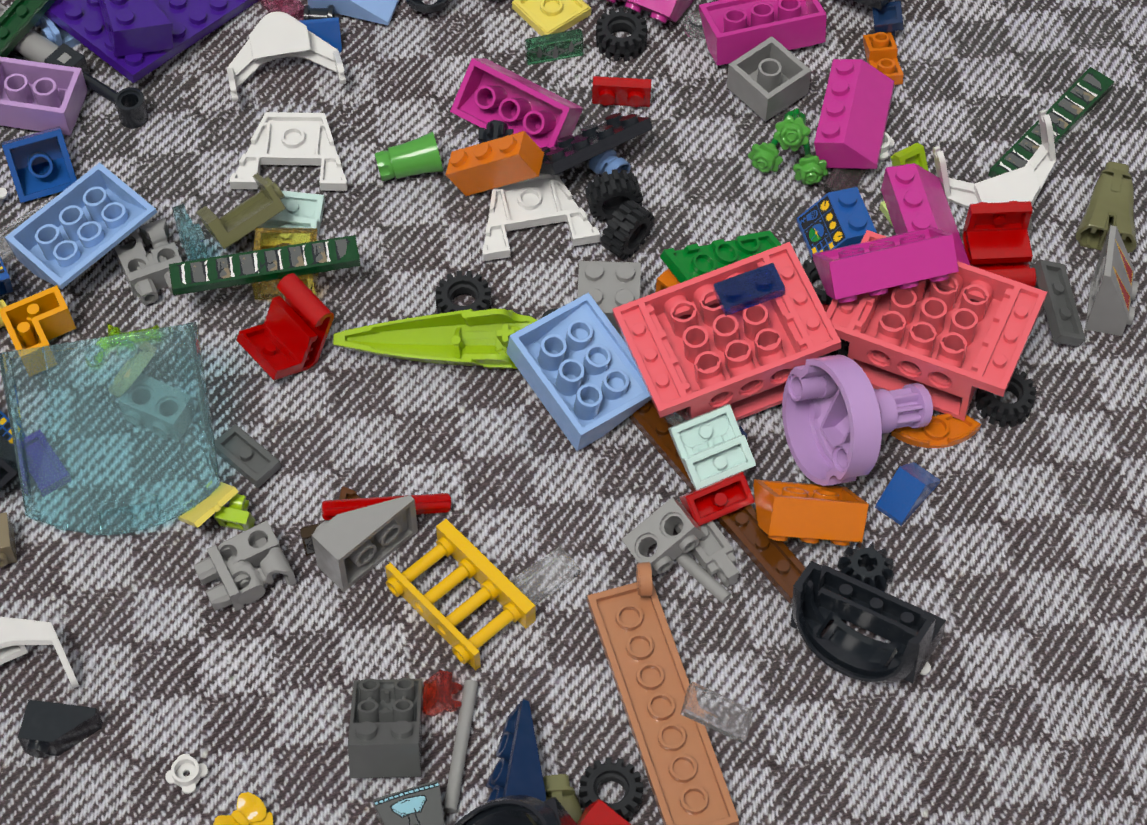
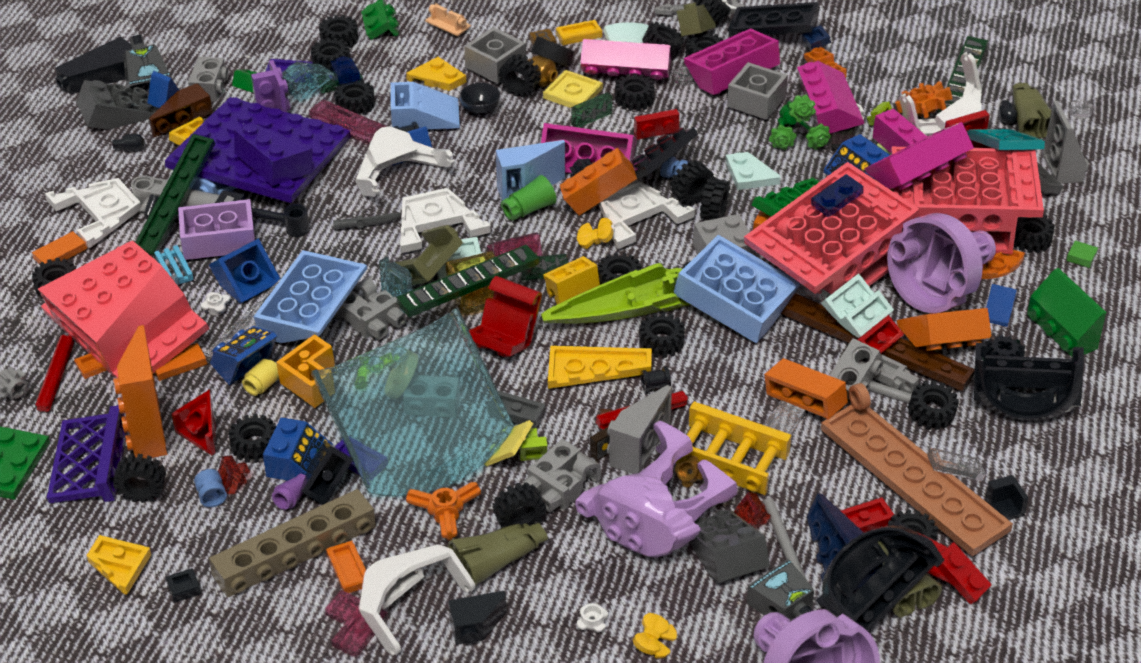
camera: 20 degrees left, 15 degrees down
(108, 561) = (444, 505): none -> orange bush
(115, 644) = (492, 551): none -> olive piece
(171, 599) = (523, 496): none -> black tyre
(206, 130) = (365, 221): none -> dark grey piece
(298, 652) = (641, 510): none -> lavender animal
(362, 419) = (591, 364): none -> yellow wing
(367, 226) = (501, 247): none -> clear pink bracket
(385, 260) = (546, 264): none -> clear green tile
(397, 611) = (682, 471): none -> pearl gold plate
(401, 293) = (572, 279): none -> yellow hinge
(416, 112) = (523, 164): none -> light blue slope
(426, 466) = (655, 379): none -> black bush
(458, 232) = (587, 236): none -> yellow piece
(467, 390) = (662, 325): none -> black tyre
(569, 746) = (869, 514): none -> red plate
(592, 542) = (806, 388): none -> orange brick
(702, 194) = (750, 172): none -> light aqua wing
(737, 634) = (929, 415): none -> black tyre
(753, 781) = (1007, 497): none -> black panel
(972, 541) = (1067, 313): none -> green slope
(976, 154) = (928, 98): none -> orange gear
(1026, 259) = (1005, 139): none -> teal tile
(1055, 448) = (1082, 254): none -> bright green tile
(1077, 201) = (1007, 112): none -> black cylinder

